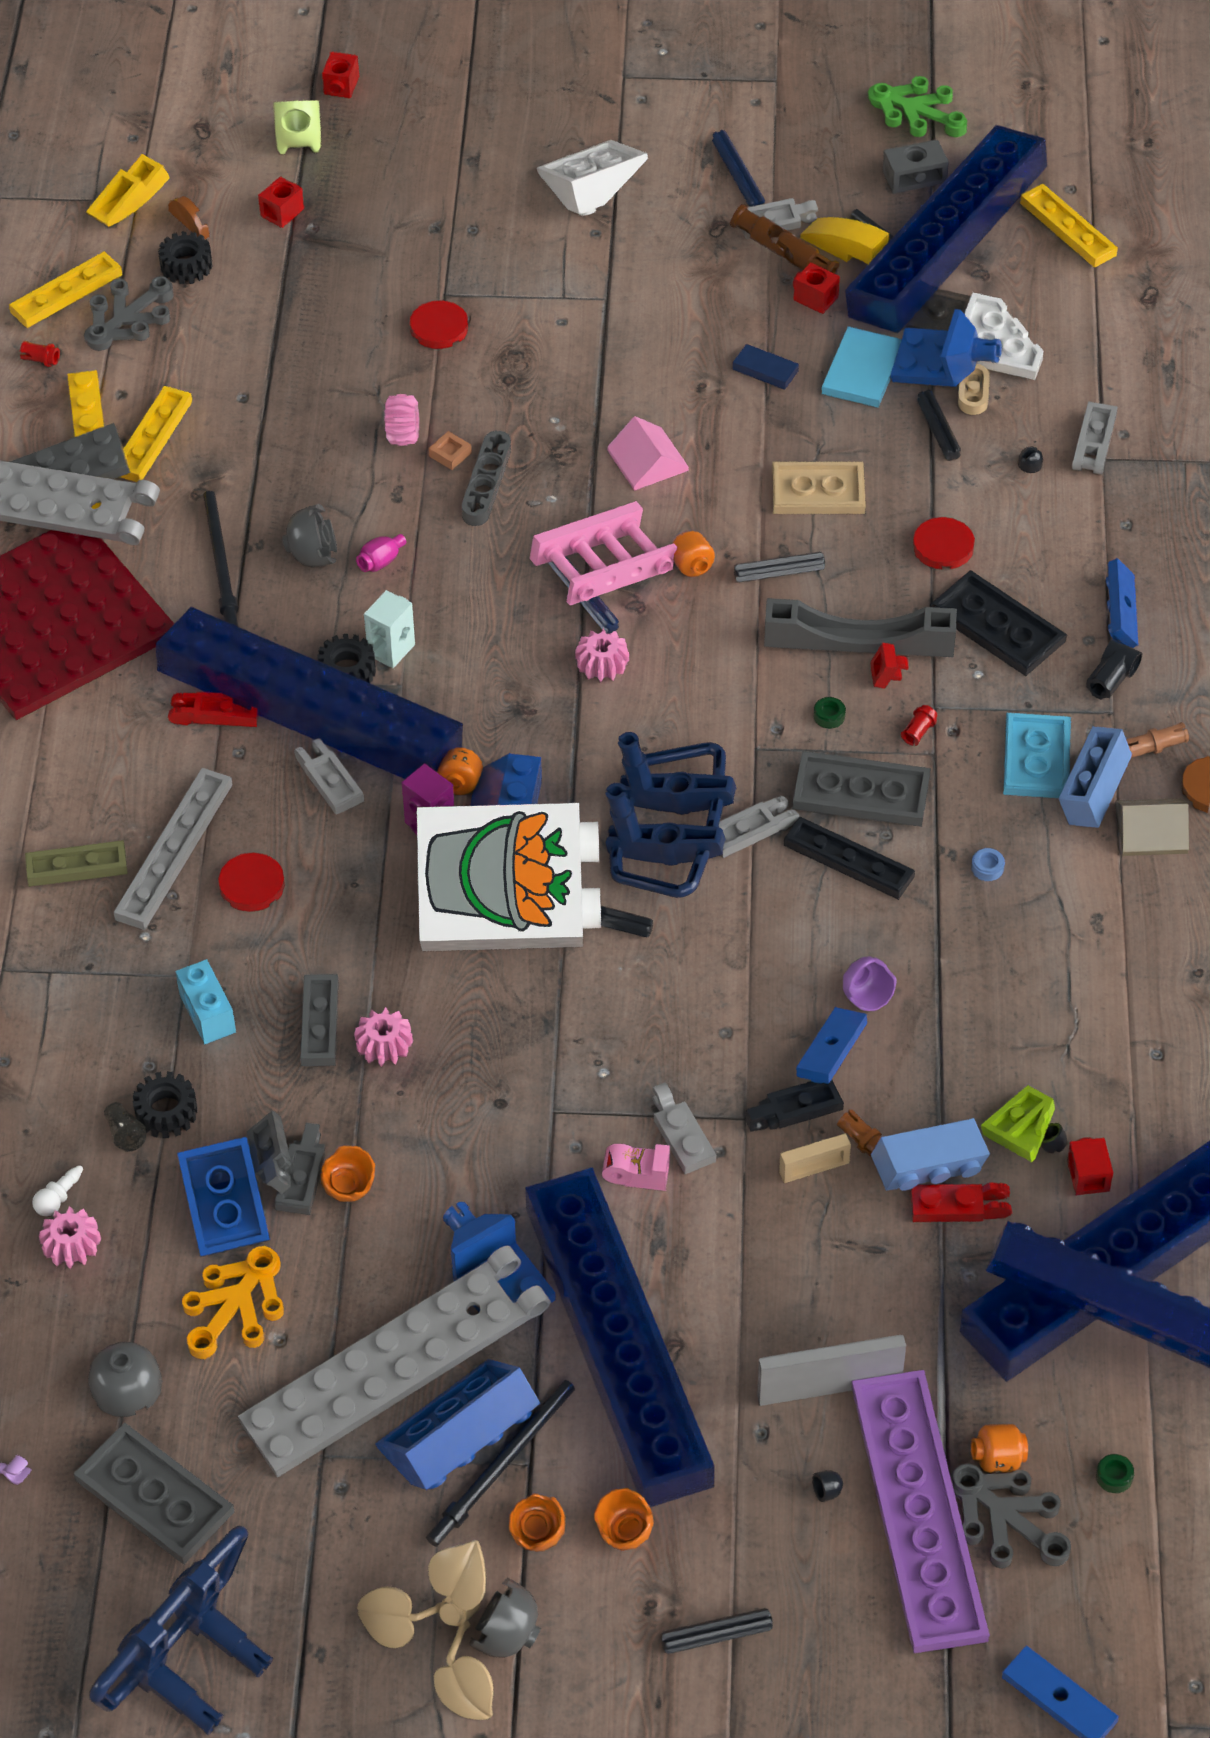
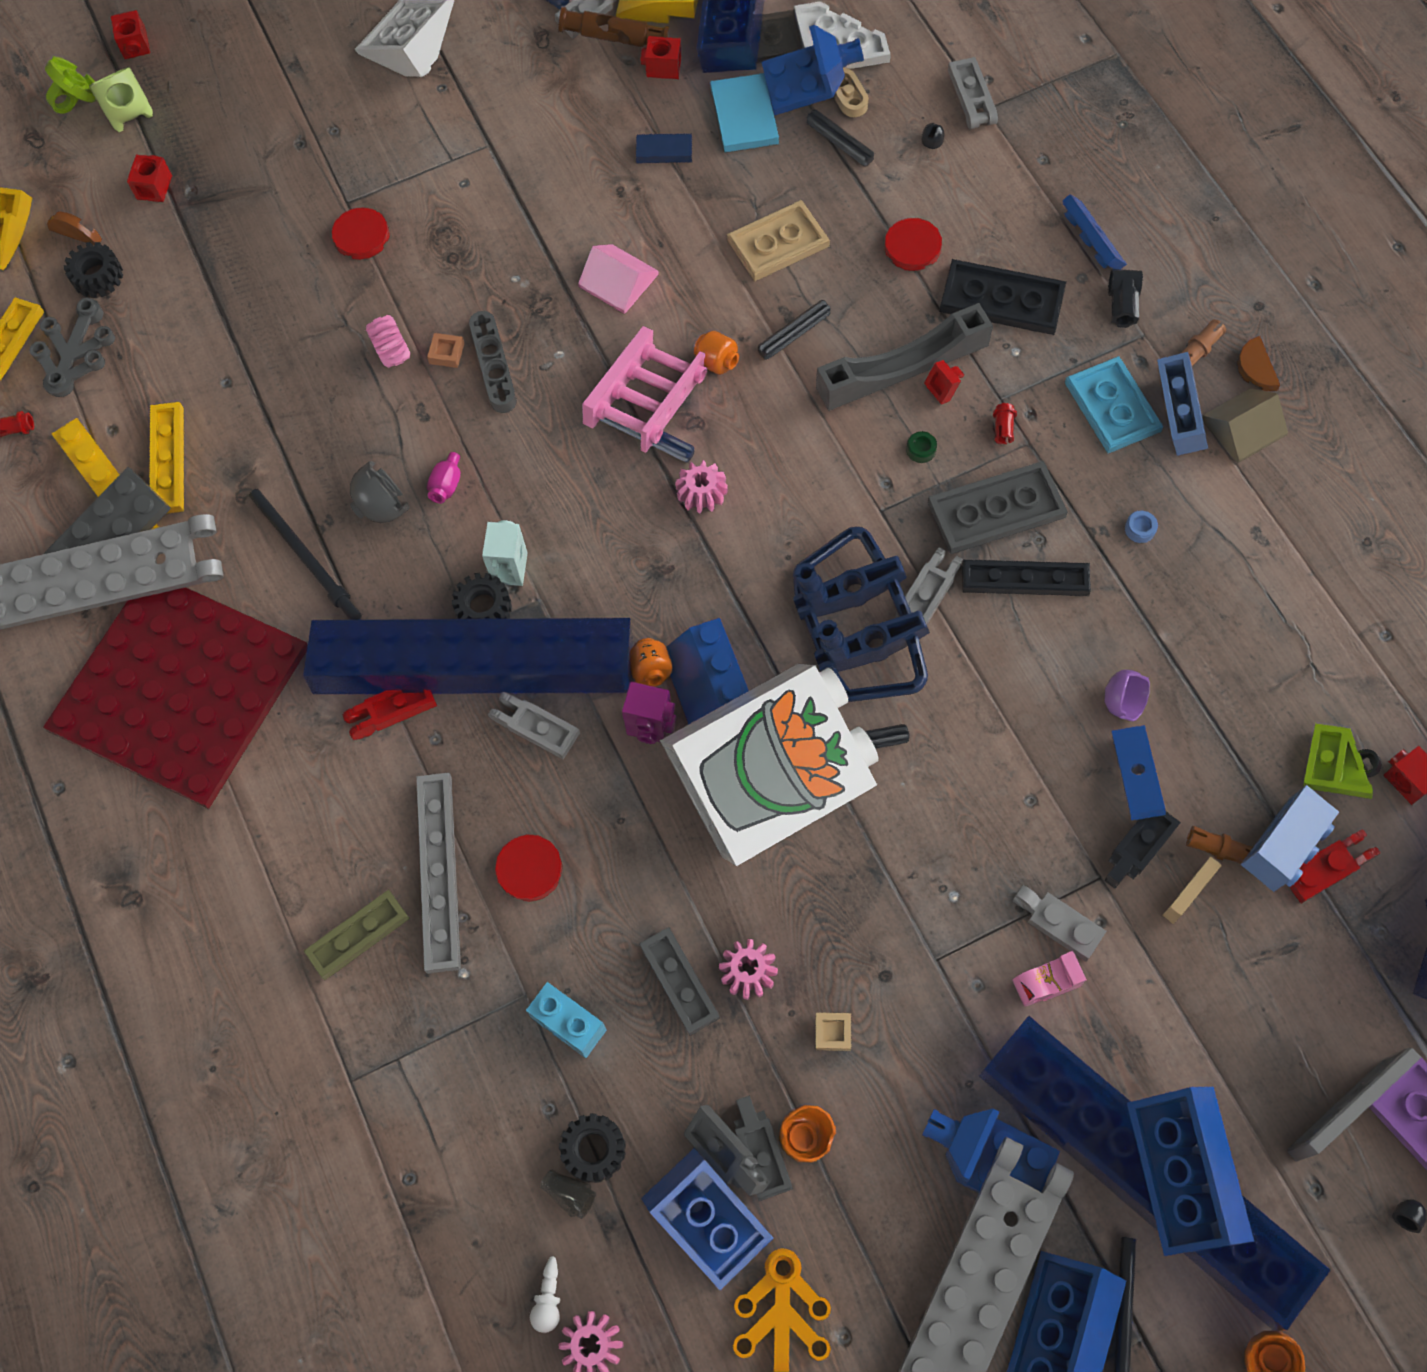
camera: 25 degrees left, 15 degrees up
(257, 91) = (69, 83): none -> lime tile
(423, 1116) = (833, 1031): none -> tan plate
(643, 1330) = (1189, 1171): none -> blue slope

